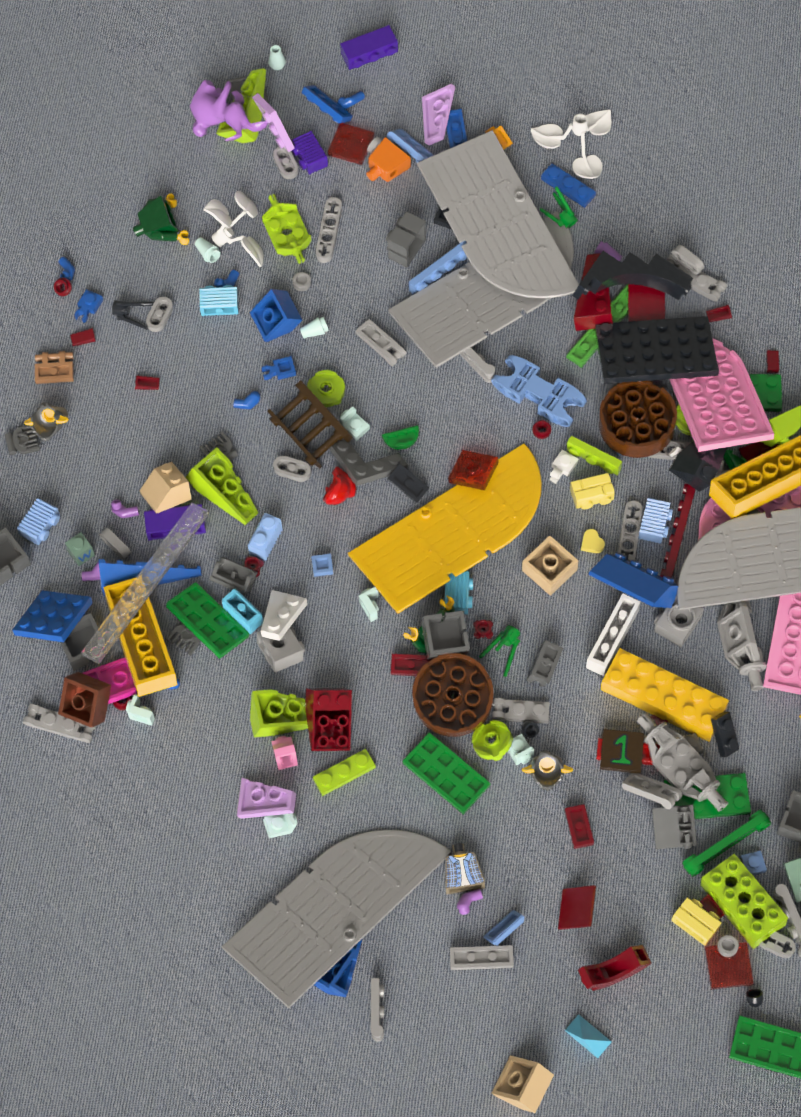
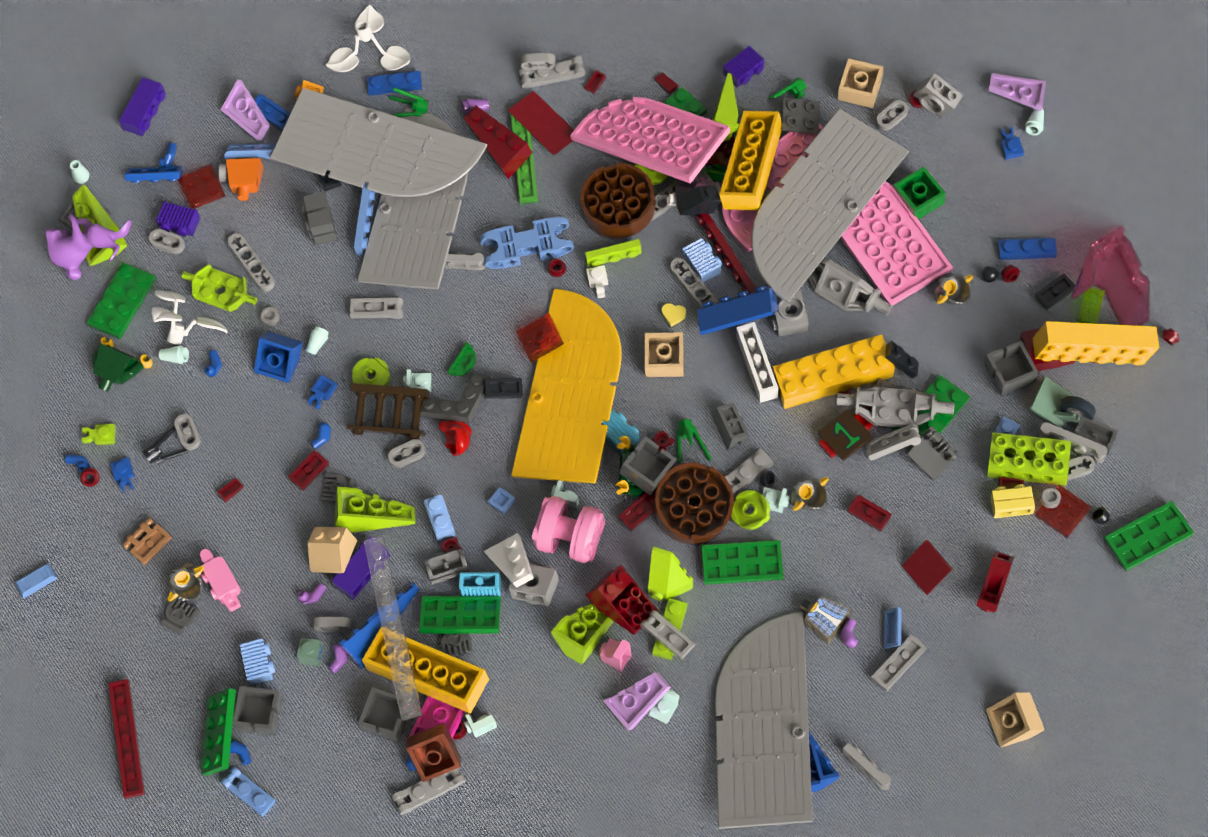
camera: 40 degrees left, 0 degrees up
(52, 616) = (344, 716): blue plate -> none
(74, 441) = (221, 579): none -> bright pink hinge
(83, 337) = (144, 500): dark red piece -> none
(101, 263) = (102, 434): none -> lime plate
(212, 178) = (121, 300): none -> green plate
(212, 418) = (308, 470): none -> dark red plate
(218, 300) = (223, 382): medium azure brick -> none
(274, 122) = (136, 215): lavender wing -> none
(333, 774) = (668, 635): none -> light grey plate
(335, 617) = (555, 525): none -> bright pink piece
(373, 730) = (666, 576): none -> lime wedge
(588, 1036) = (1021, 646): medium azure slope -> none
(592, 491) = (637, 278): light yellow brick -> none
(656, 349) = (582, 142): black plate -> none
(657, 274) = (508, 100): black arch -> none
(695, 864) = (972, 465): green piece -> none

